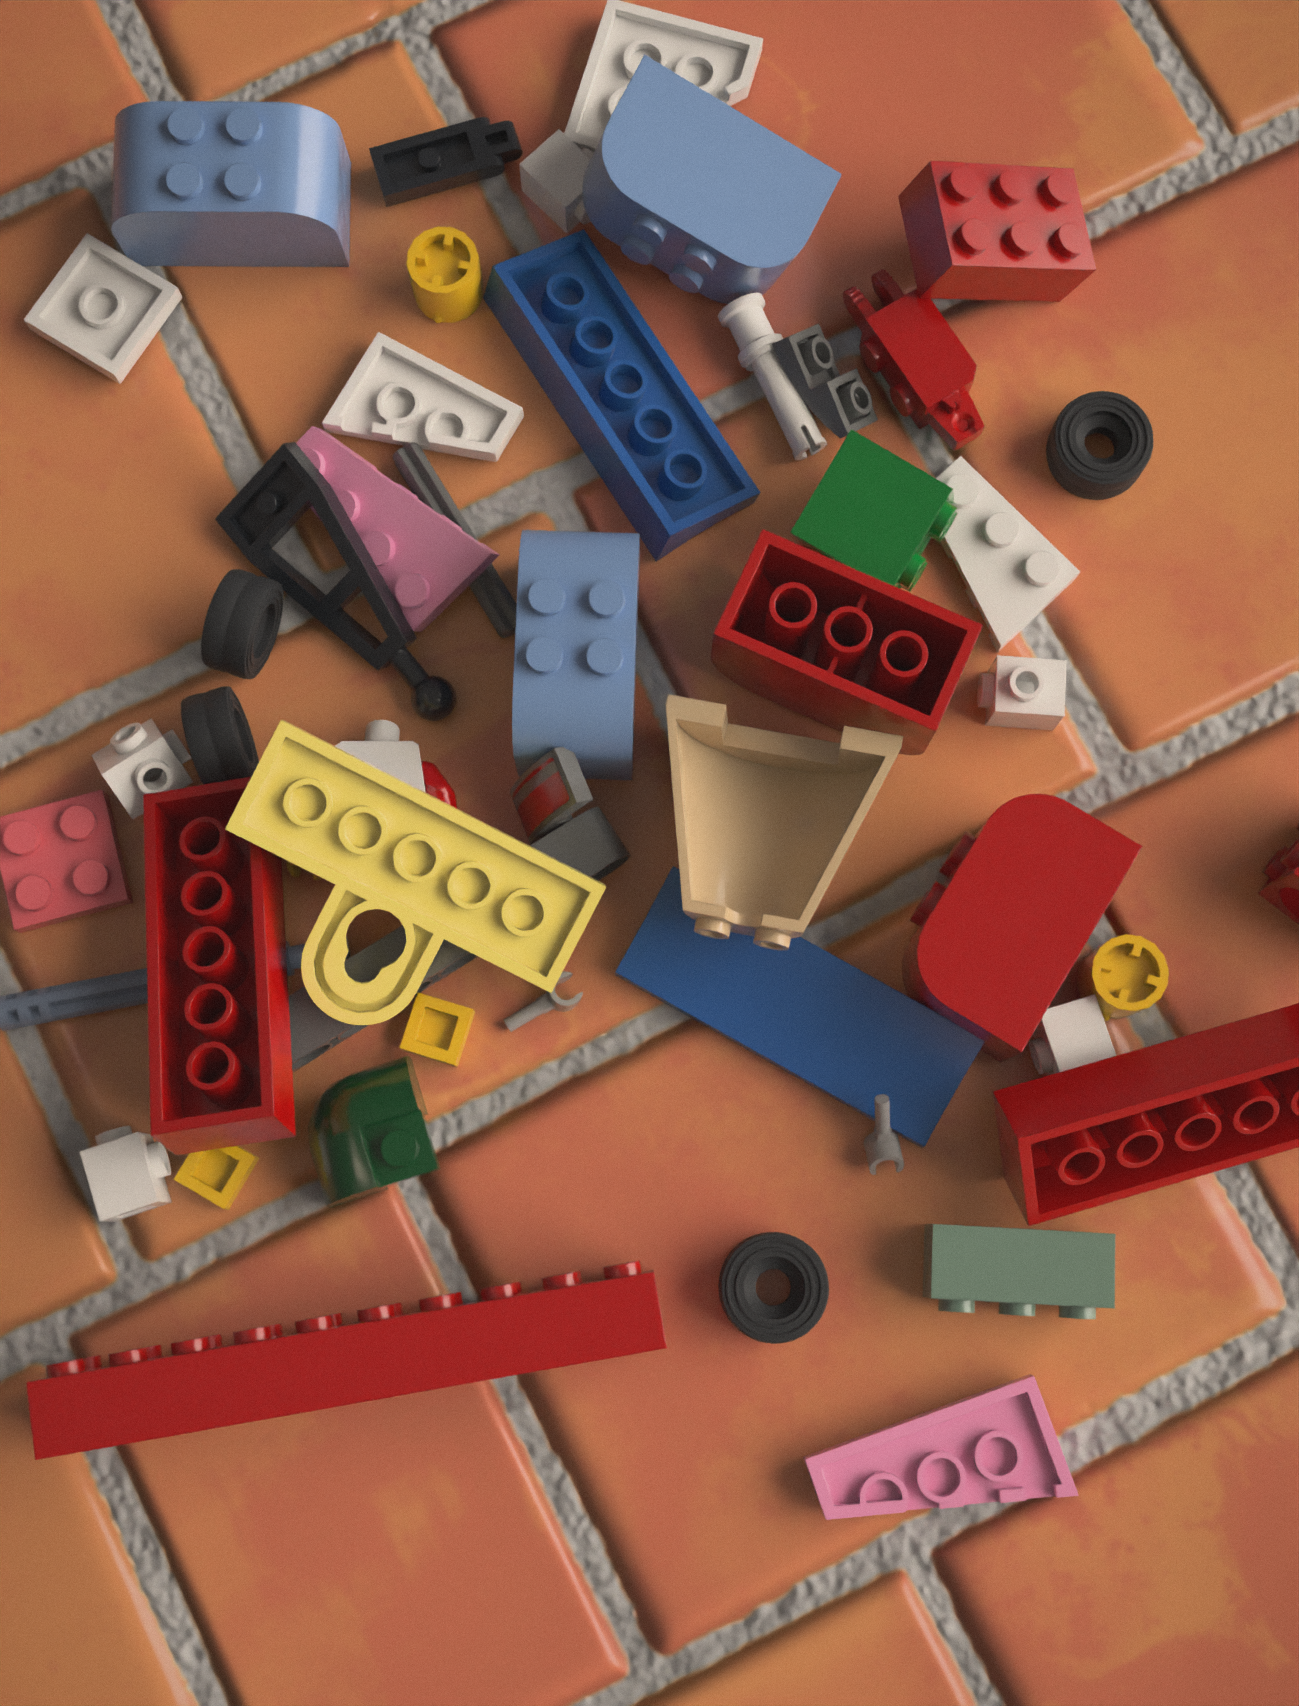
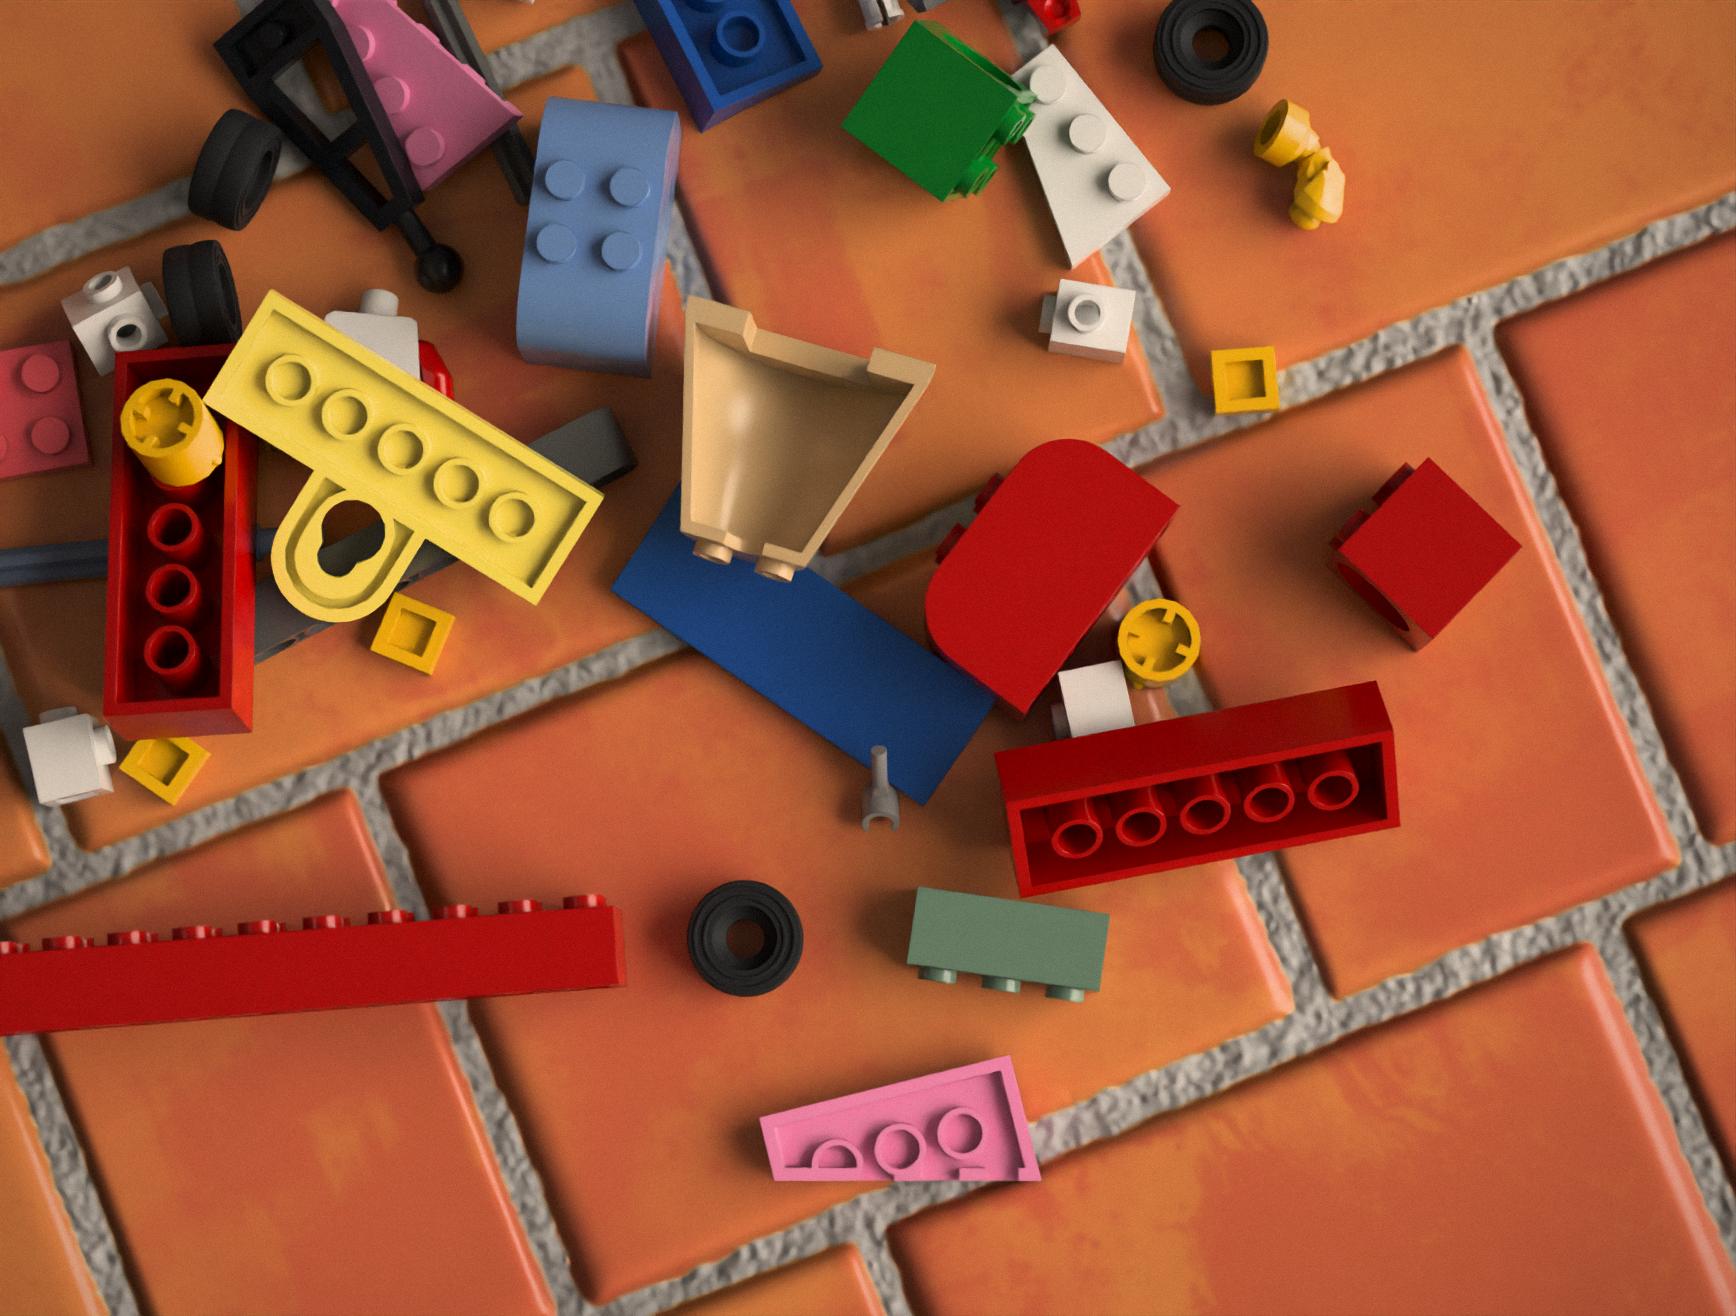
camera: 10 degrees right, 5 degrees up
(199, 860) = (172, 432): none -> yellow piece
(370, 1132) = (332, 737): dark green brick -> none
(543, 1005) = (529, 617): light grey hand -> none
(550, 793) = (555, 389): slope -> none
(841, 644) = (883, 255): red brick -> none
(1165, 735) = (1244, 381): none -> yellow tile
(1179, 517) = (1320, 185): none -> yellow arm

